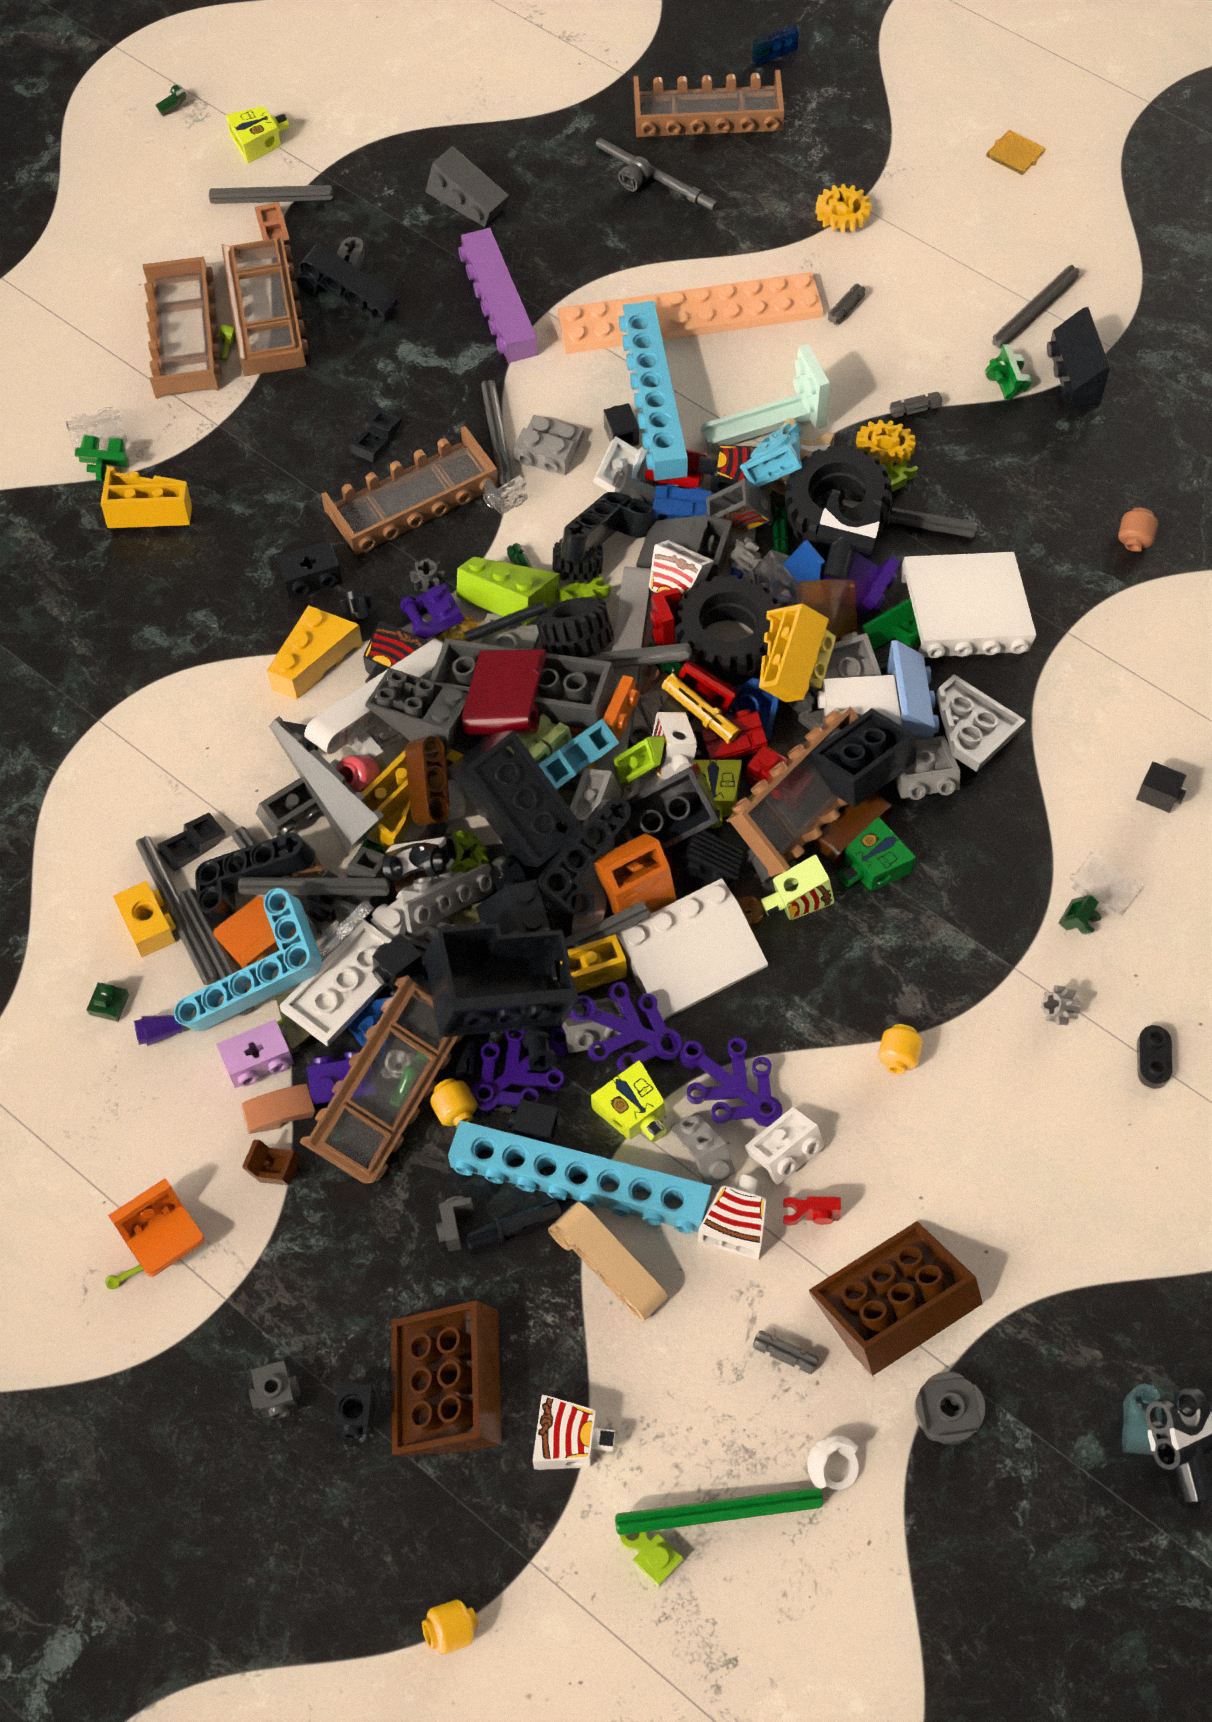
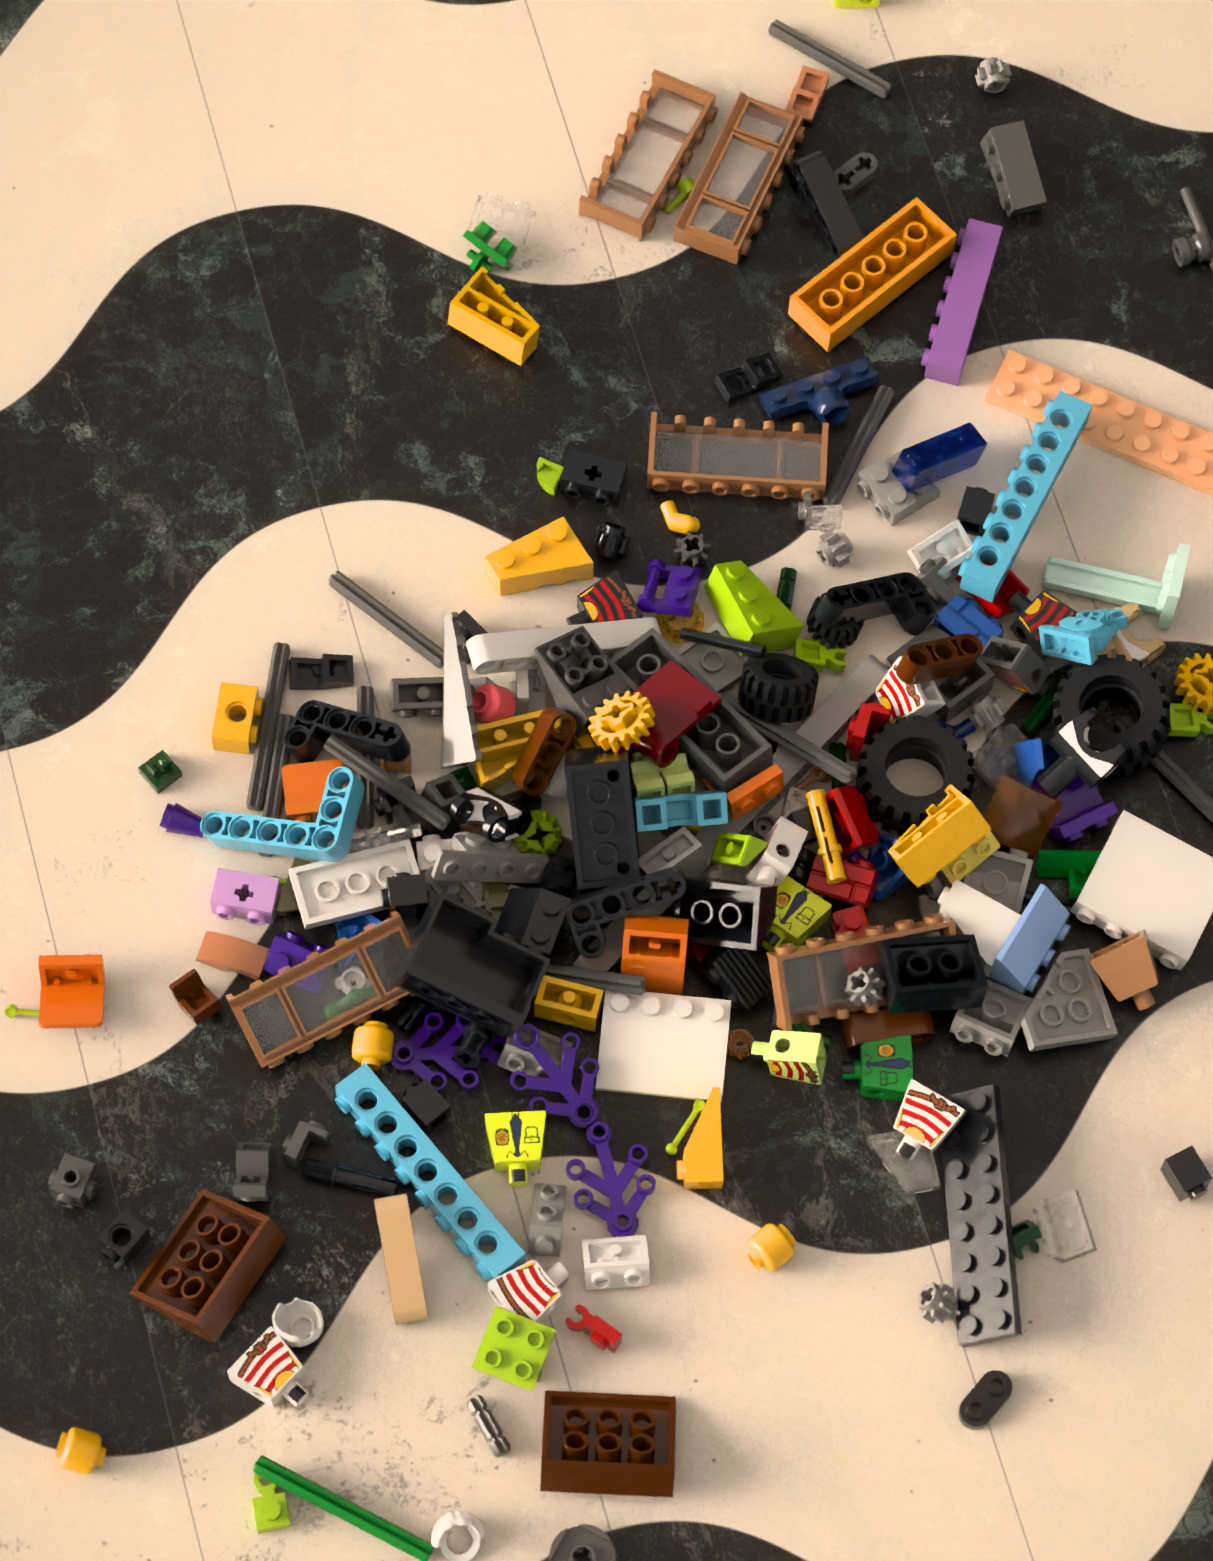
camera: 30 degrees right, 5 degrees up
(219, 768) = (387, 618): none -> dark grey axle
(271, 589) = (549, 475): none -> lime tile
(399, 563) = (678, 522): none -> yellow arm
(402, 140) = (993, 75): none -> light grey gear
(416, 312) = (872, 274): none -> light orange brick
(427, 1275) = (252, 1171): none -> dark grey brick
(443, 411) = (821, 393): none -> dark blue plate
(480, 713) = (621, 721): none -> yellow gear
(537, 511) = (834, 549): none -> light grey gear
(561, 1375) = (298, 1322): none -> white hair
(567, 402) = (939, 457): none -> clear blue brick
(687, 528) = (939, 658): none -> reddish brown beam
(754, 981) = (671, 1148): none -> lime hinge
(761, 1271) = (514, 1348): none -> lime hinge
(790, 1013) = (703, 1153): none -> yellow slope
(820, 799) = (864, 987): none -> light grey gear
(943, 869) = (925, 1119): none -> torso
(946, 913) = (914, 1175): none -> clear wing
(998, 666) = (1128, 969): none -> medium nougat torso
(1039, 919) = (980, 1221): none -> plate

